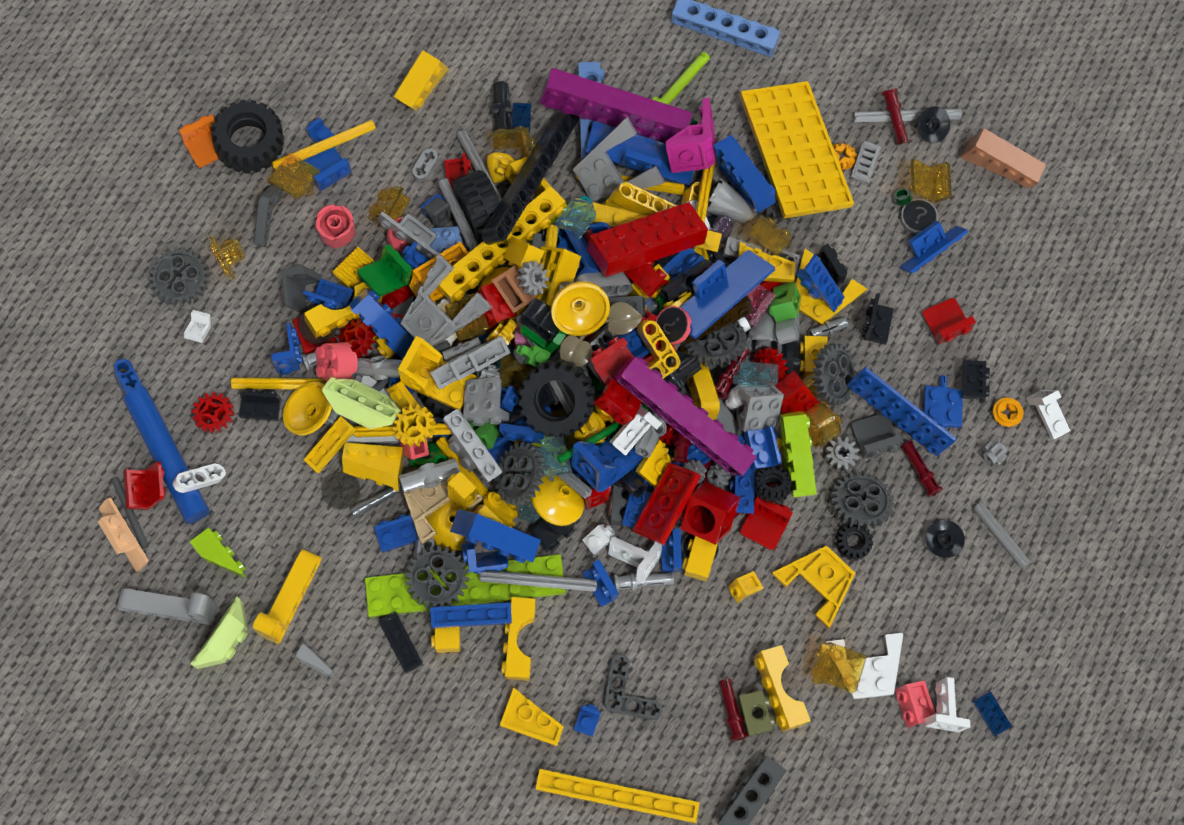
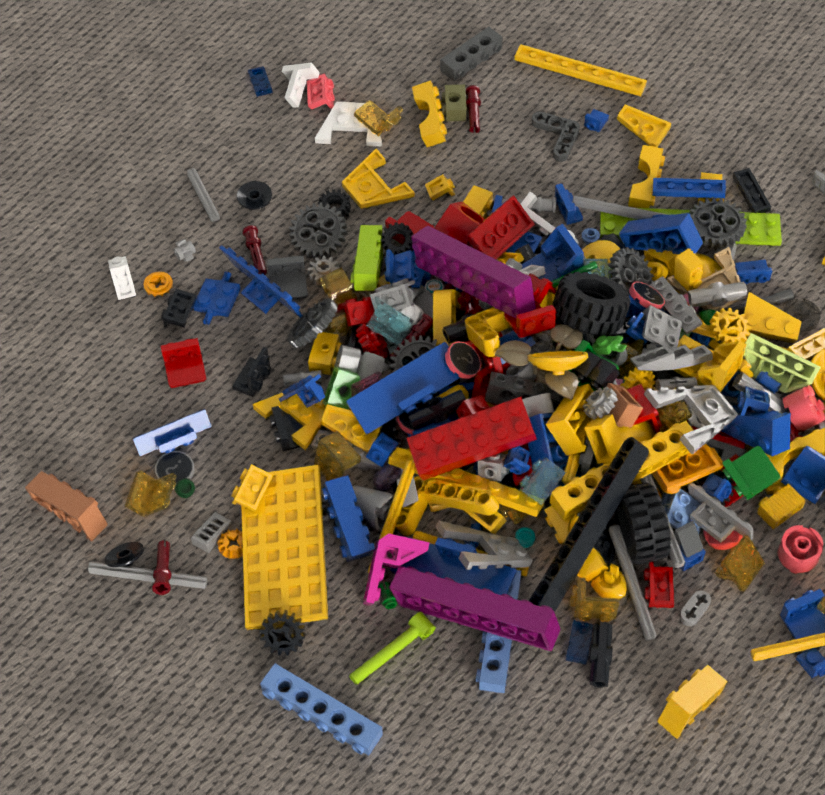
camera: 165 degrees left, 15 degrees down
(372, 383) = (768, 382): none -> blue pin
(386, 339) = (754, 398): none -> blue bracket
(501, 441) = (646, 295): none -> tile
(568, 557) = (586, 235): none -> medium blue plate
(730, 246) = (381, 449): none -> blue bracket
(774, 75) = (282, 642): none -> black gear
(840, 185) = (252, 487): none -> yellow bracket

